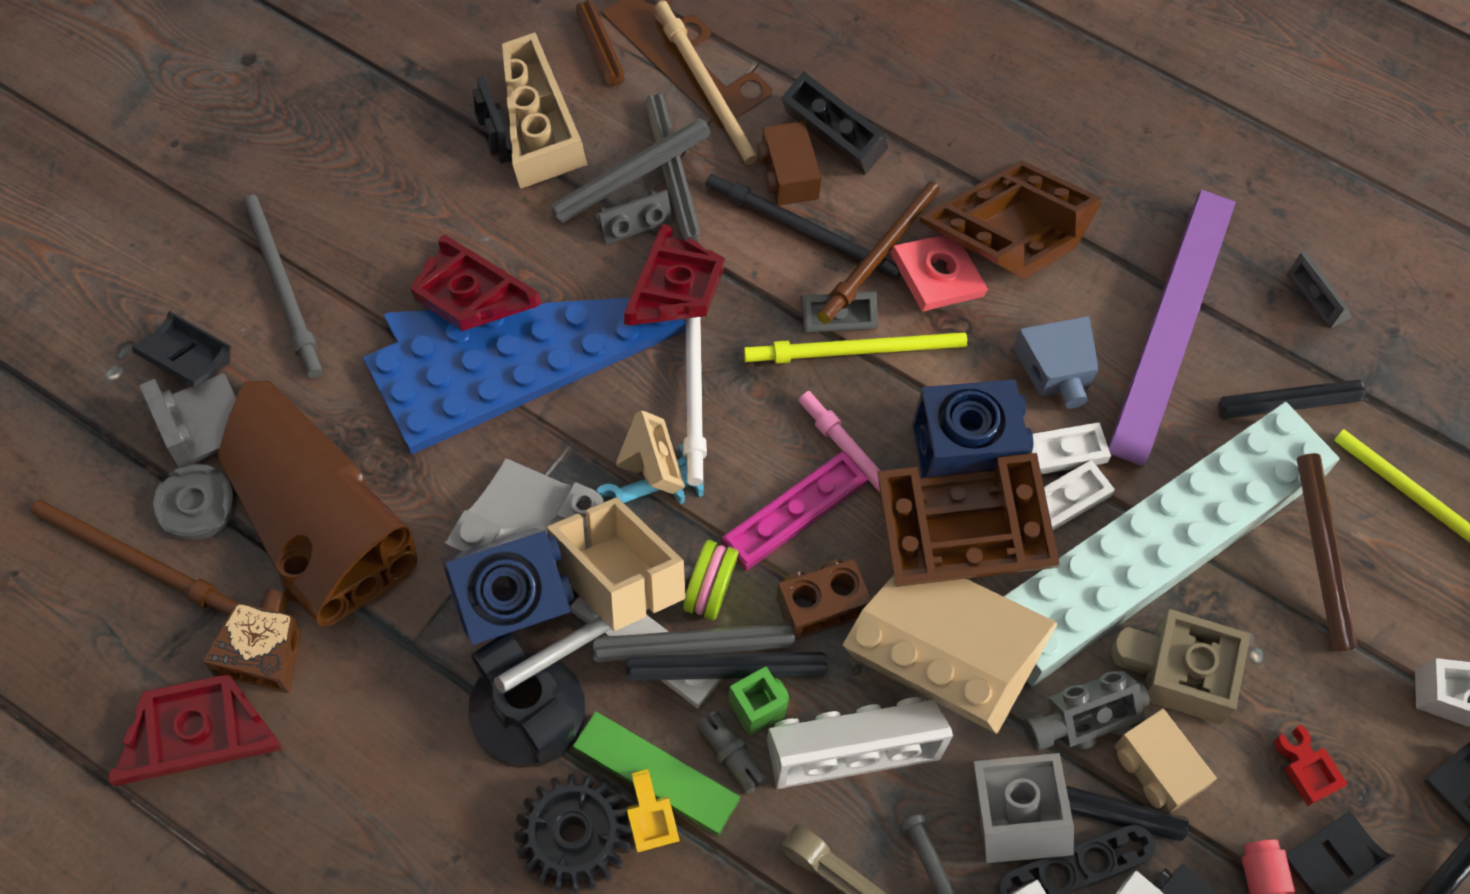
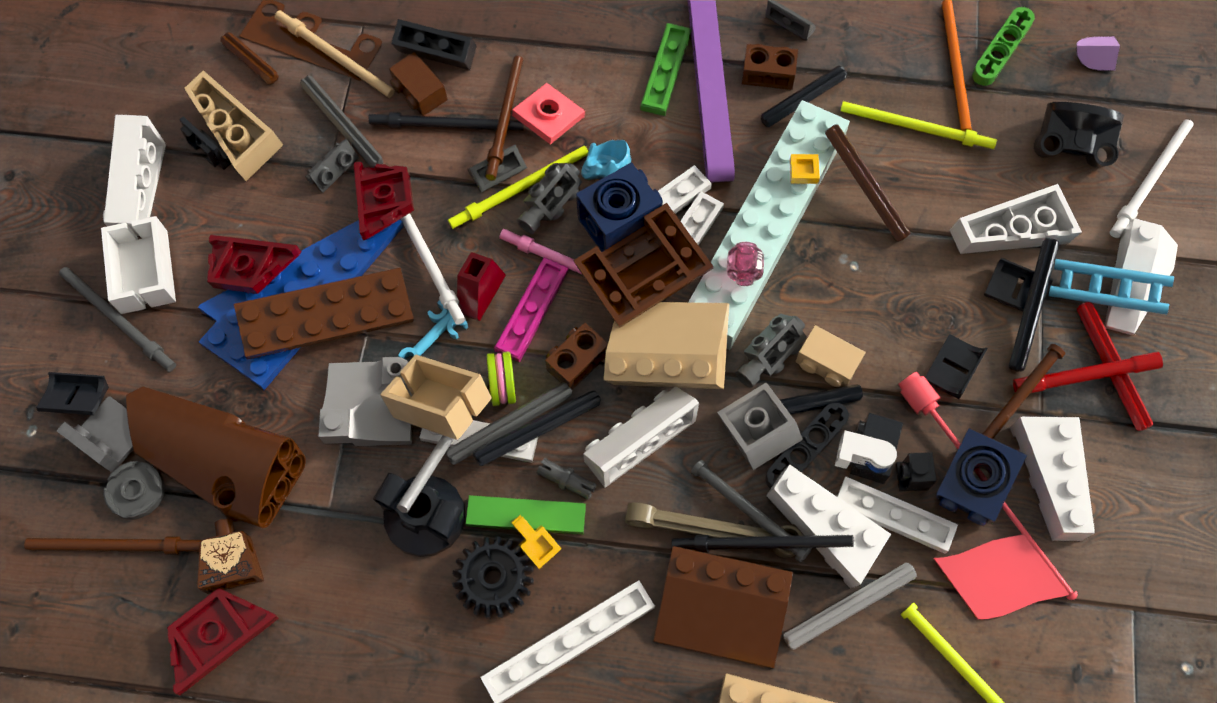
camera: 20 degrees left, 5 degrees up
(336, 234) = (138, 268): none -> white piece
(389, 121) = (133, 170): none -> white wedge
(527, 391) = (323, 313): none -> reddish brown plate
(534, 591) = (392, 439): dark blue brick -> none
(630, 170) = (314, 136): dark grey axle -> none
(651, 451) = (421, 314): tan slope -> none
(740, 447) = (477, 285): none -> dark red slope
(758, 701) = (568, 439): bright green brick -> none
(891, 378) = (547, 199): none -> dark grey brick
(984, 361) = (605, 159): none -> medium azure hair
(1017, 218) = (581, 56): reddish brown slope -> none
(1059, 358) = (651, 135): sand blue torso -> none
(1104, 580) = (745, 263): none -> clear pink head
(1123, 279) = (665, 69): none -> bright green tile
(1186, 648) = (809, 283): dark tan brick -> none
(1245, 493) = (804, 169): none -> yellow plate
(1260, 342) = (770, 70): none -> reddish brown brick
(1311, 772) = (918, 321): red plate -> none

